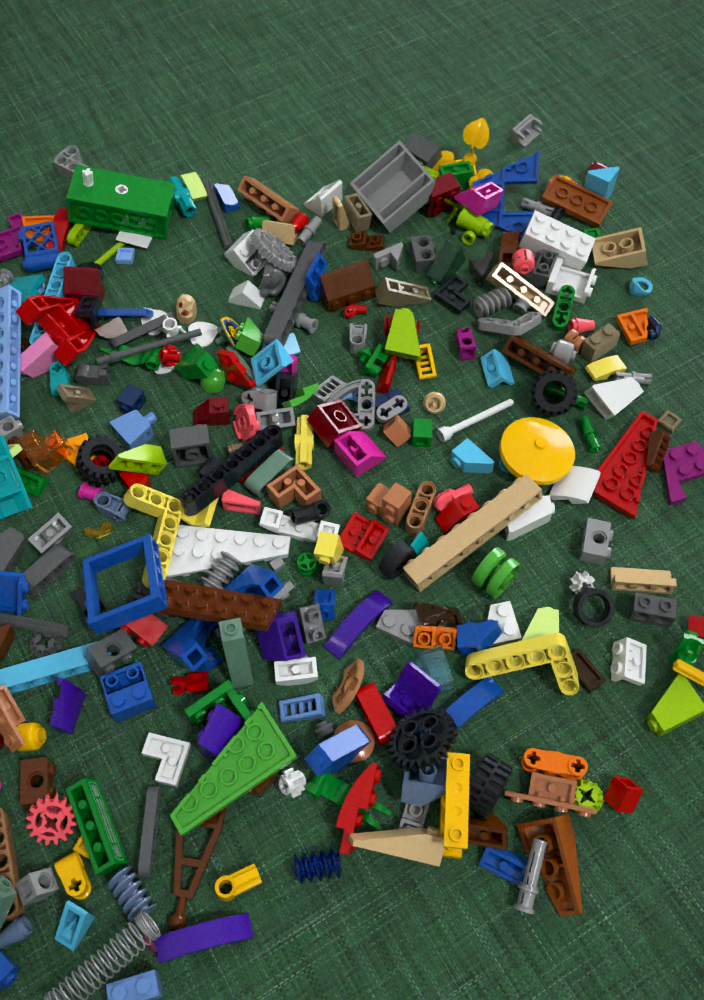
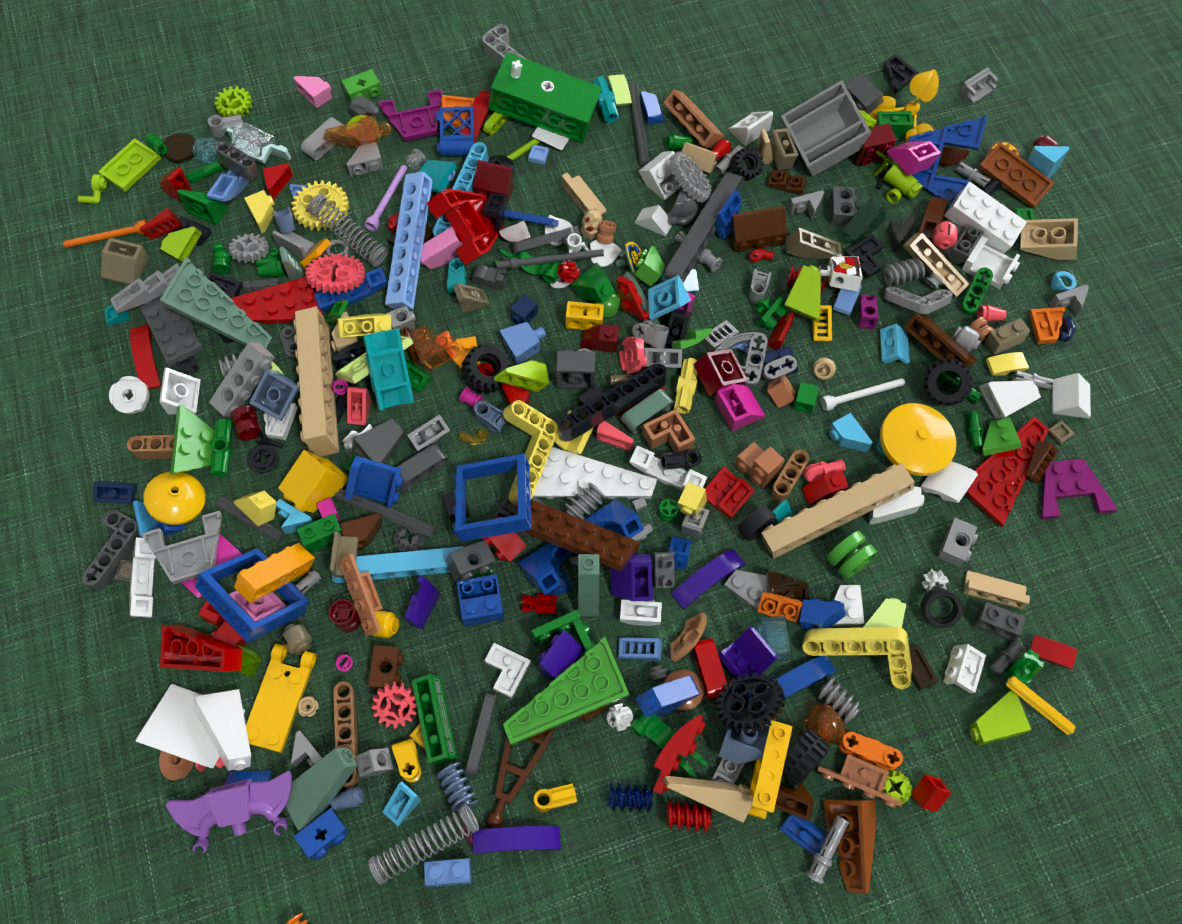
camera: 10 degrees right, 5 degrees up
(171, 283) = (581, 194): none -> tan panel
(191, 393) = (584, 315): none -> yellow brick
(201, 313) = (606, 232): none -> nougat wheel
(324, 221) = (754, 159): none -> black tyre
(381, 872) = (688, 816): none -> red piece
(435, 312) = (843, 272): none -> torso
(443, 334) = (846, 301): none -> medium blue slope
(450, 131) = (898, 72): none -> black wing
(504, 745) = (826, 723): none -> clear orange piece
(512, 719) = (839, 700): none -> light grey piece
(516, 193) = (953, 156): none -> reddish brown brick
(615, 435) = (1001, 437): none -> bright green wing
(652, 298) = (1073, 298): none -> light grey slope
(667, 643) = (1006, 657): none -> dark grey axle
(671, 387) = (1071, 396): none -> white slope

